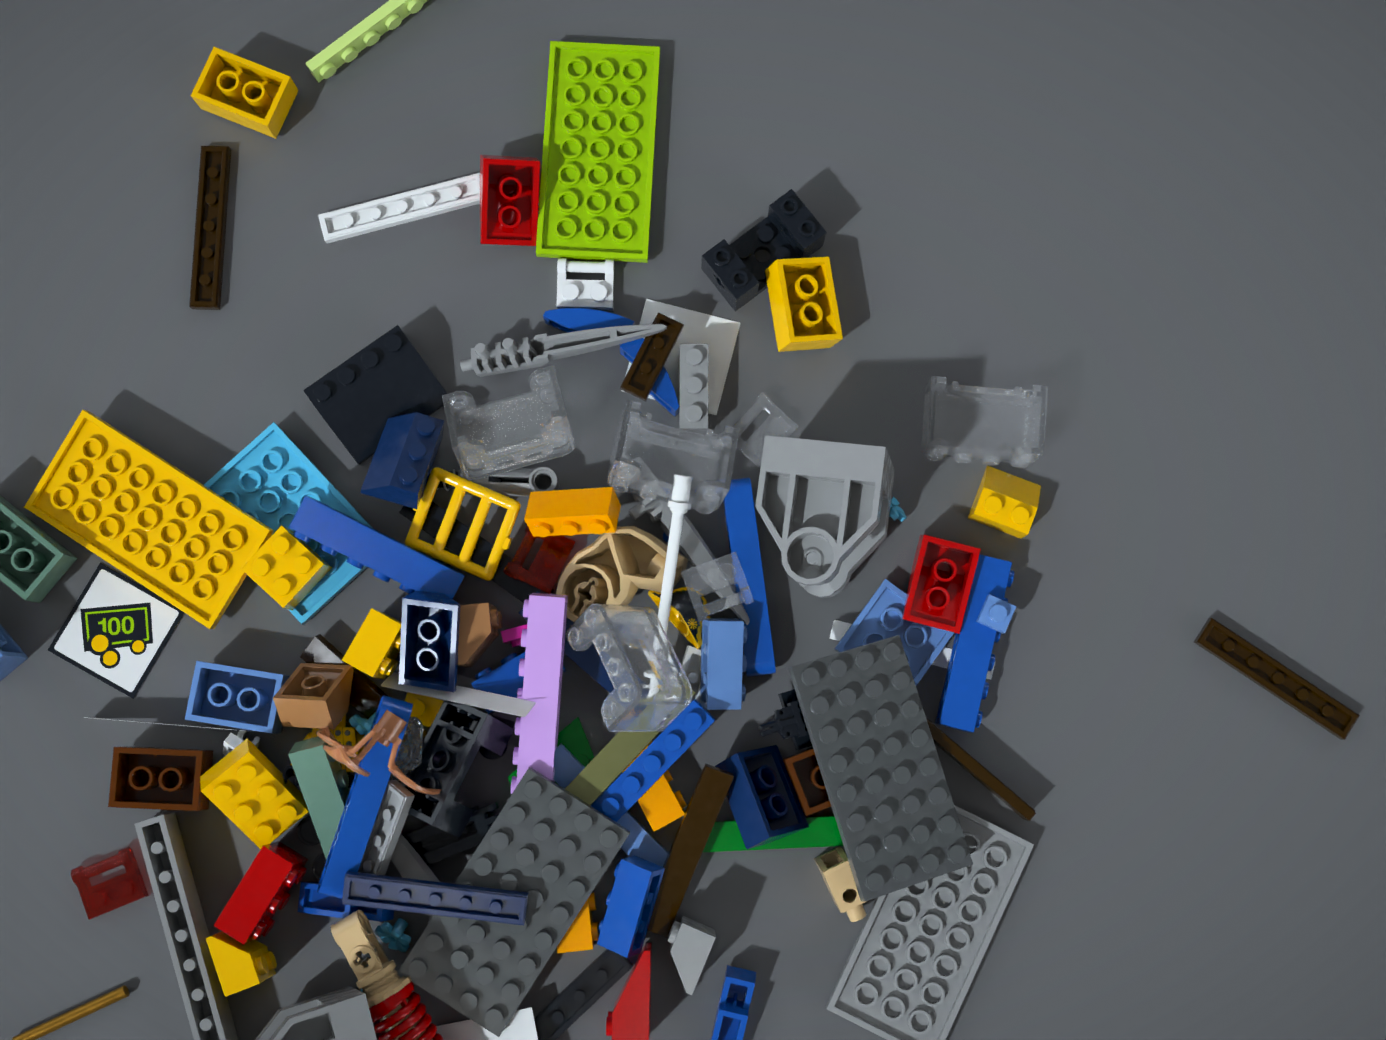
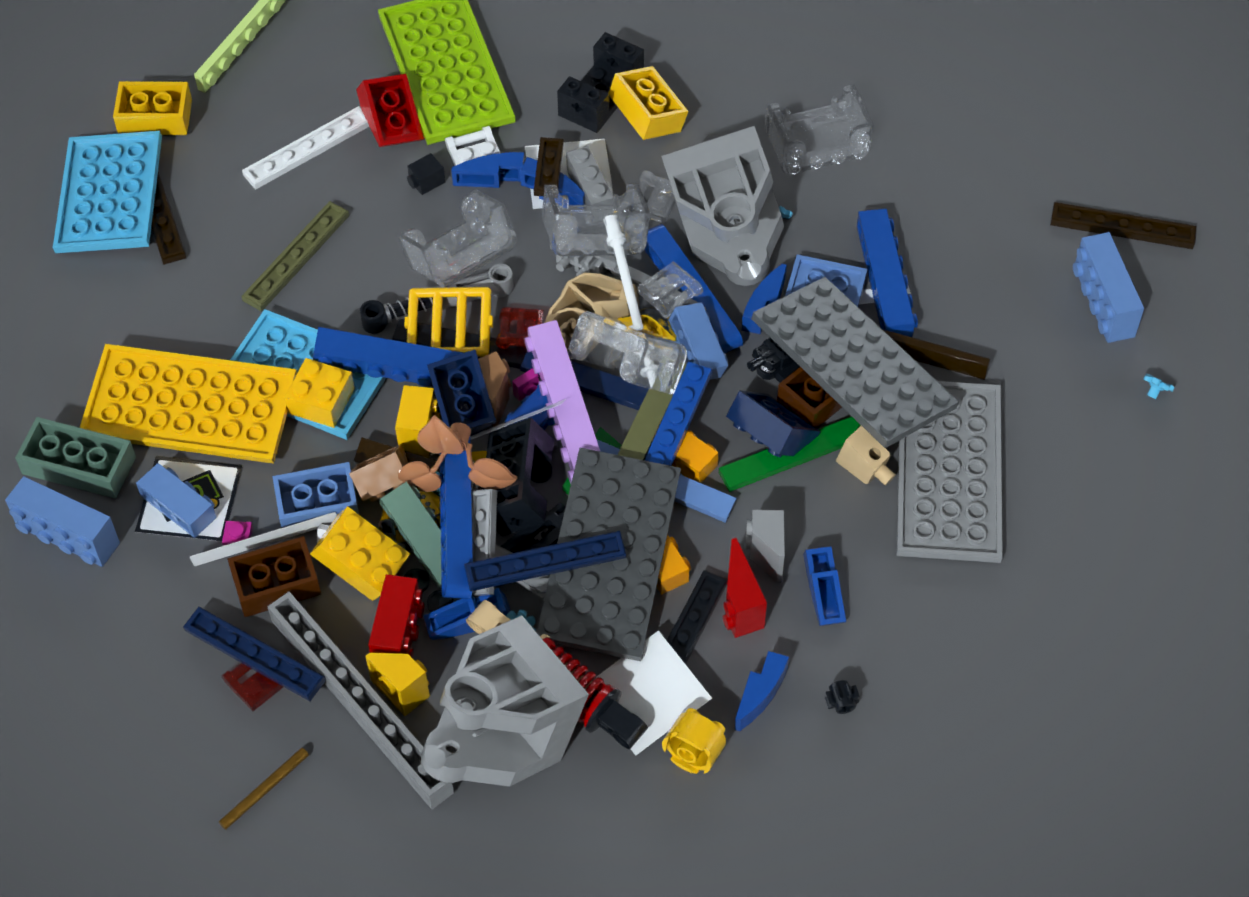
camera: 20 degrees left, 25 degrees down
(96, 636) = (177, 499): none -> medium blue brick
(109, 863) = (254, 653): none -> dark blue tile
(148, 699) = (236, 531): none -> dark pink plate
(160, 191) = (108, 192): none -> medium azure plate
(290, 385) = (295, 256): none -> olive tile
(373, 386) = (340, 266): black slope -> none
(404, 459) = (384, 288): dark blue slope -> none
(516, 302) = (425, 174): none -> black brick
(542, 348) = (449, 201): light grey piece -> none
(572, 512) = (534, 280): light orange brick -> none
(630, 906) = (704, 529): blue brick -> none
(689, 845) = (731, 475): dark brown tile -> none
(824, 626) = (765, 294): none -> blue slope
(940, 583) = (839, 236): red slope -> none
(996, 614) = (891, 241): medium blue plate -> none
(1005, 502) = (863, 183): yellow slope -> none
(1209, 912) = (1156, 385): none -> medium azure plant
(1214, 770) = (1108, 287): none -> medium blue brick

